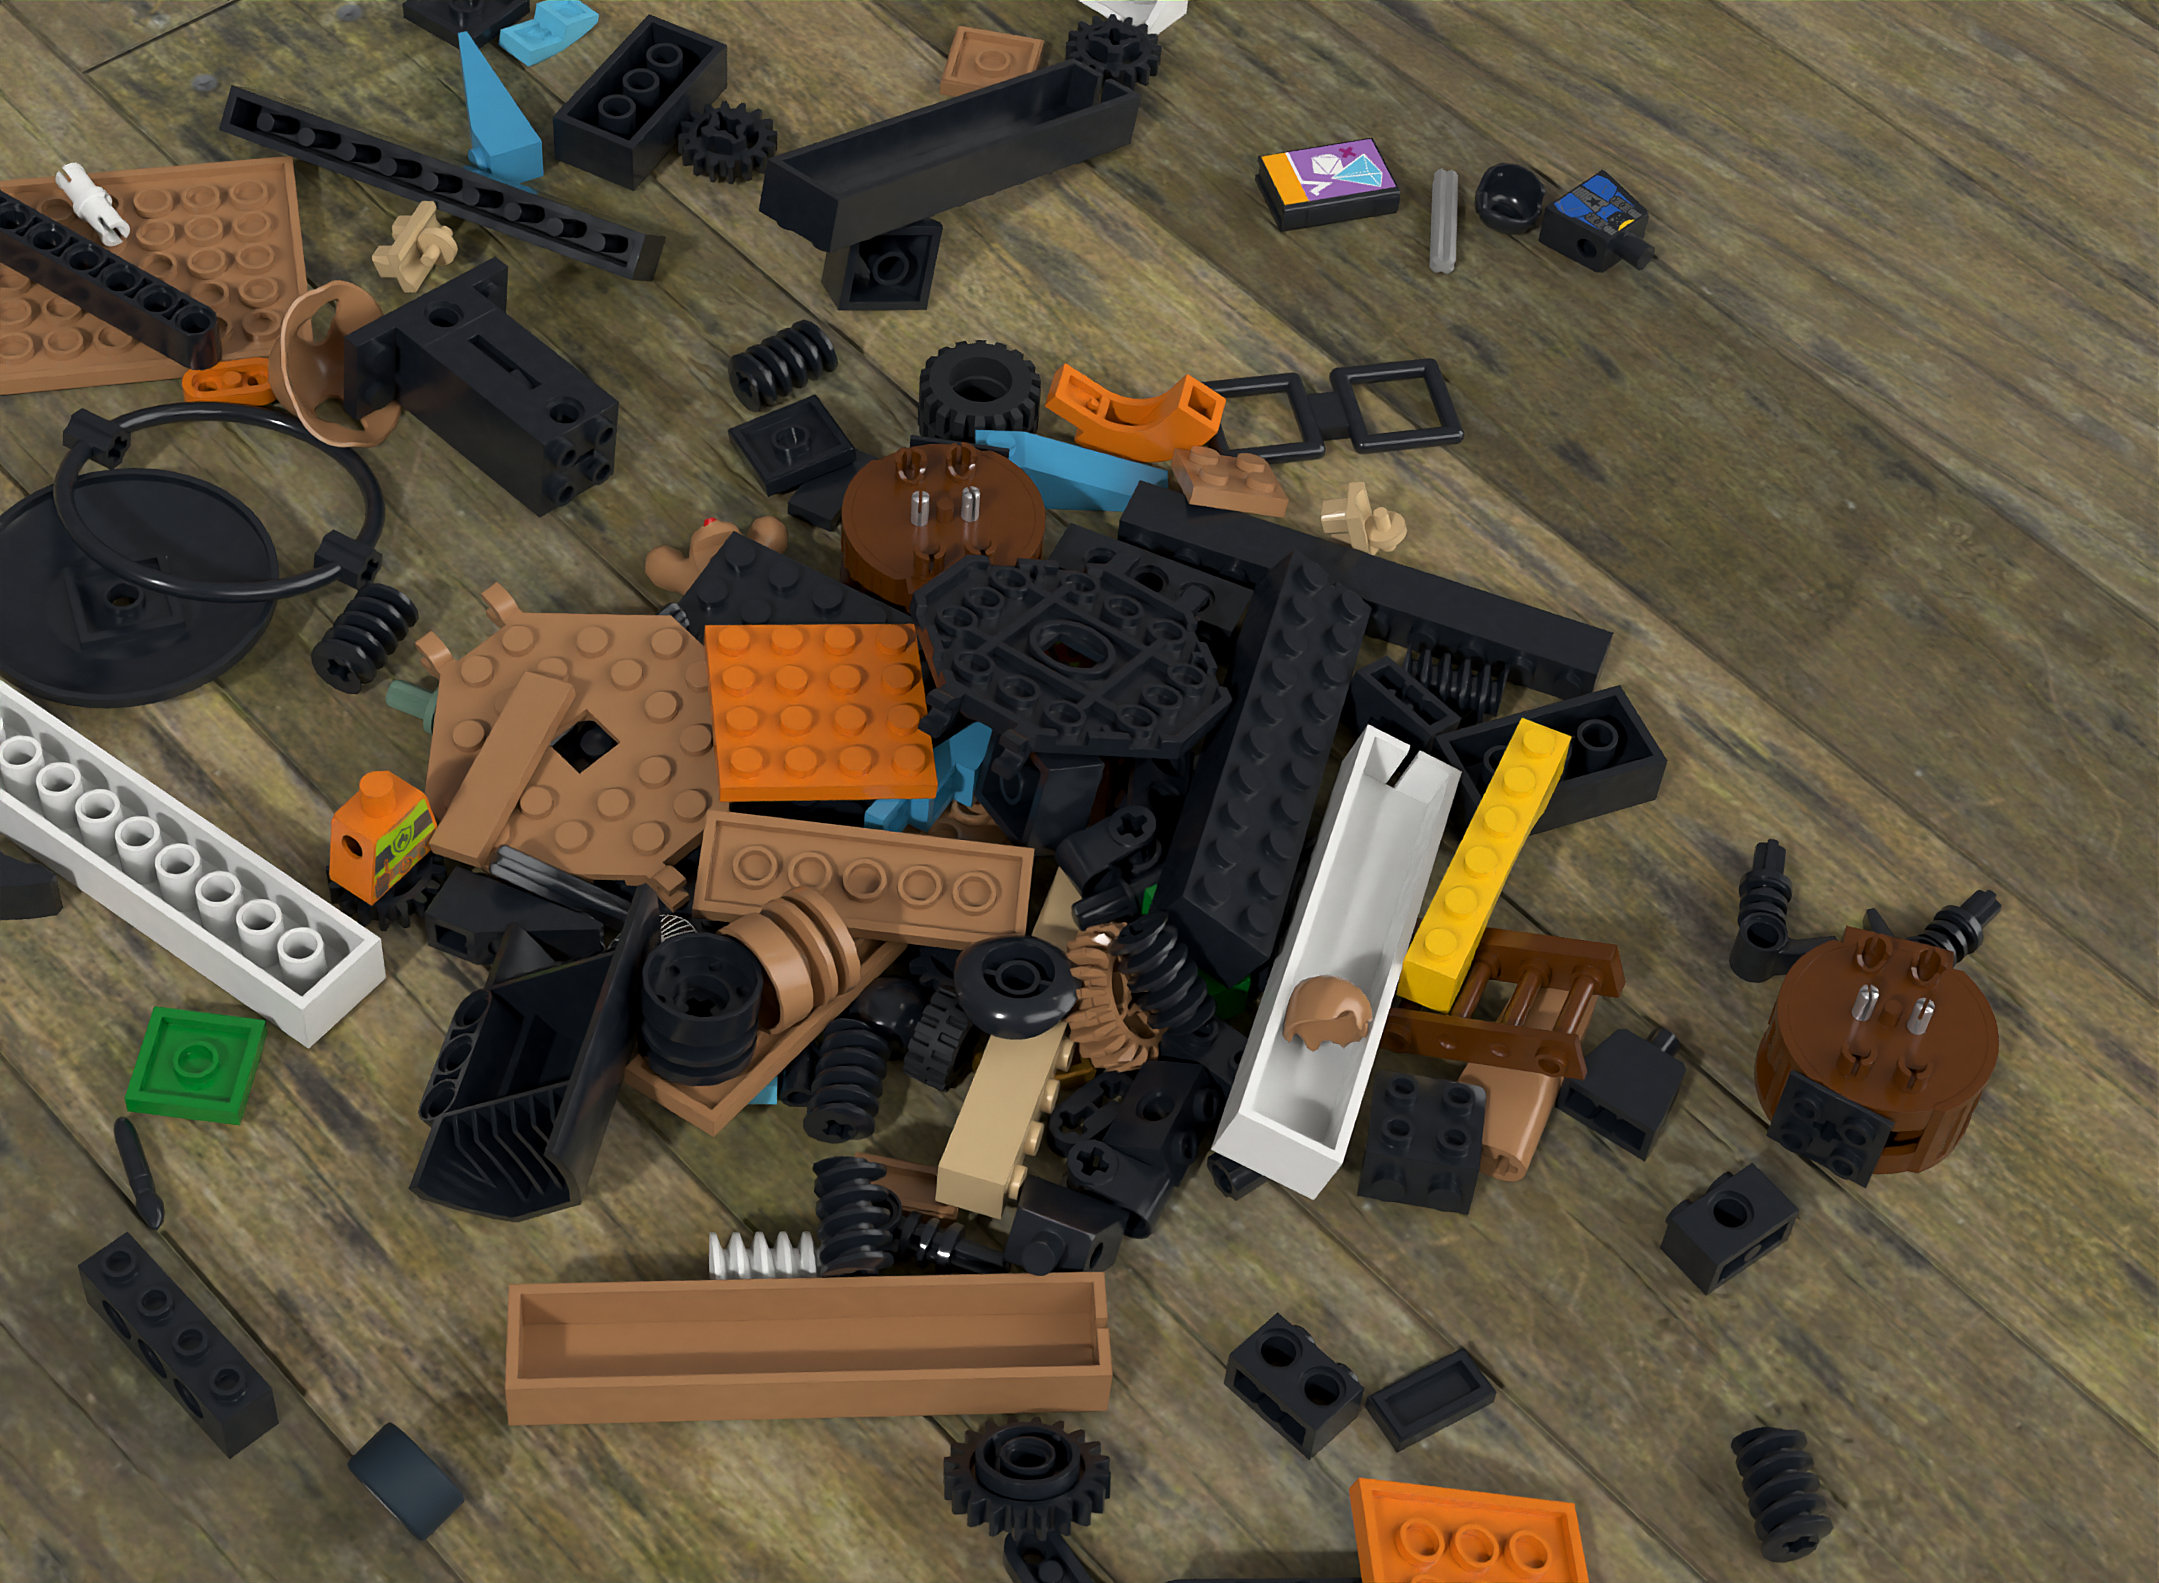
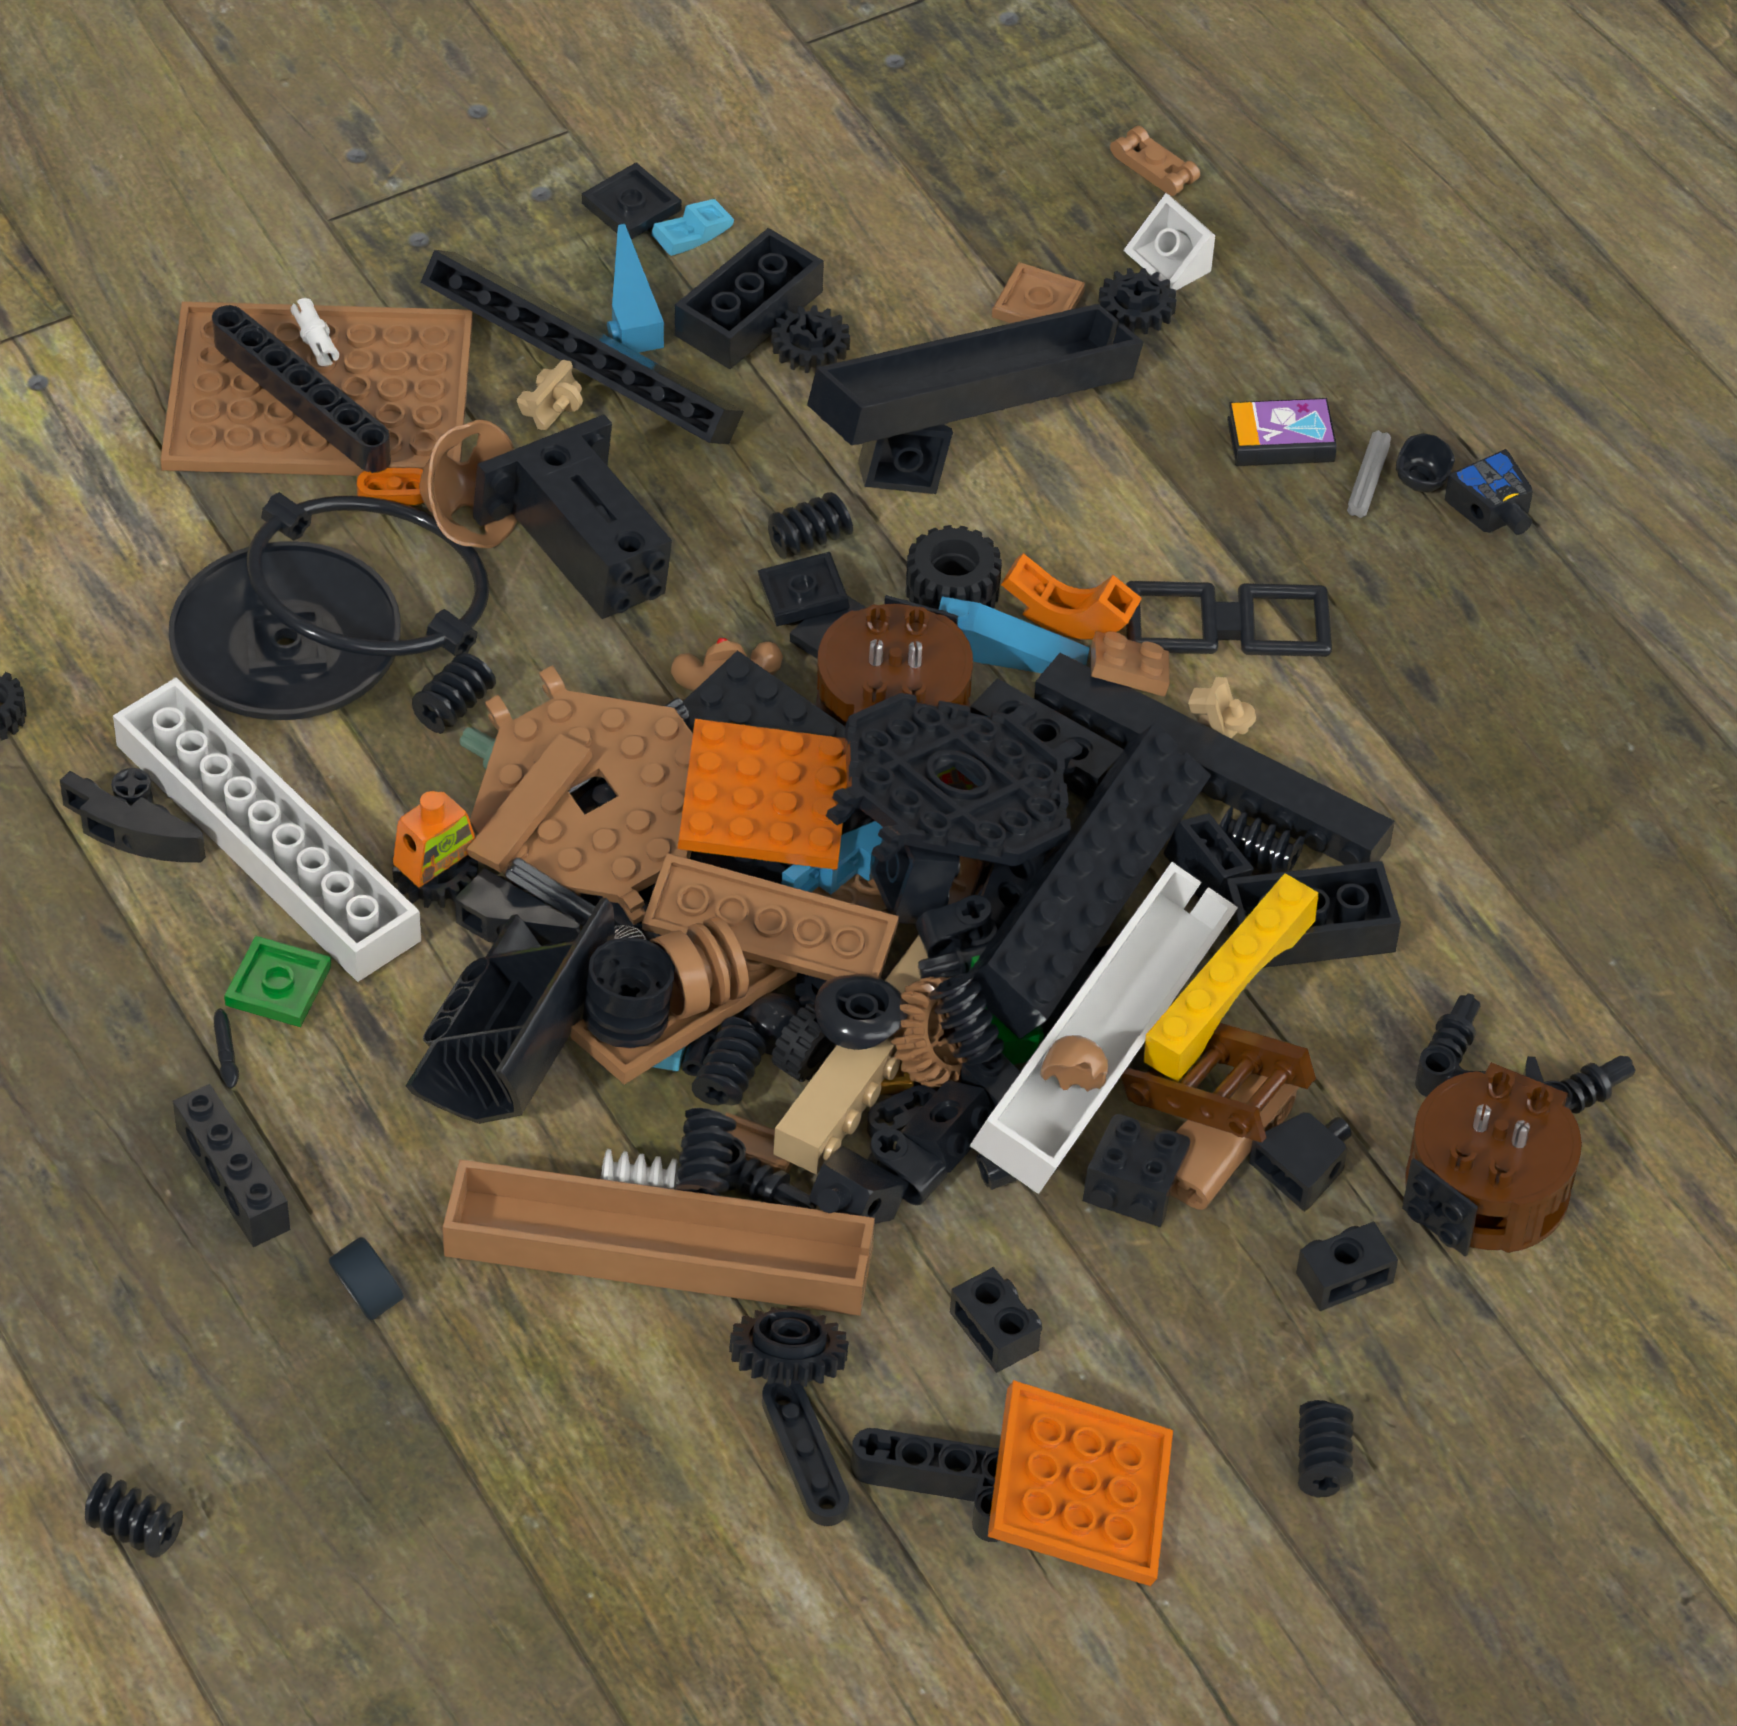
camera: 15 degrees right, 0 degrees up
(1430, 1399) = (1093, 1346): black tile -> none

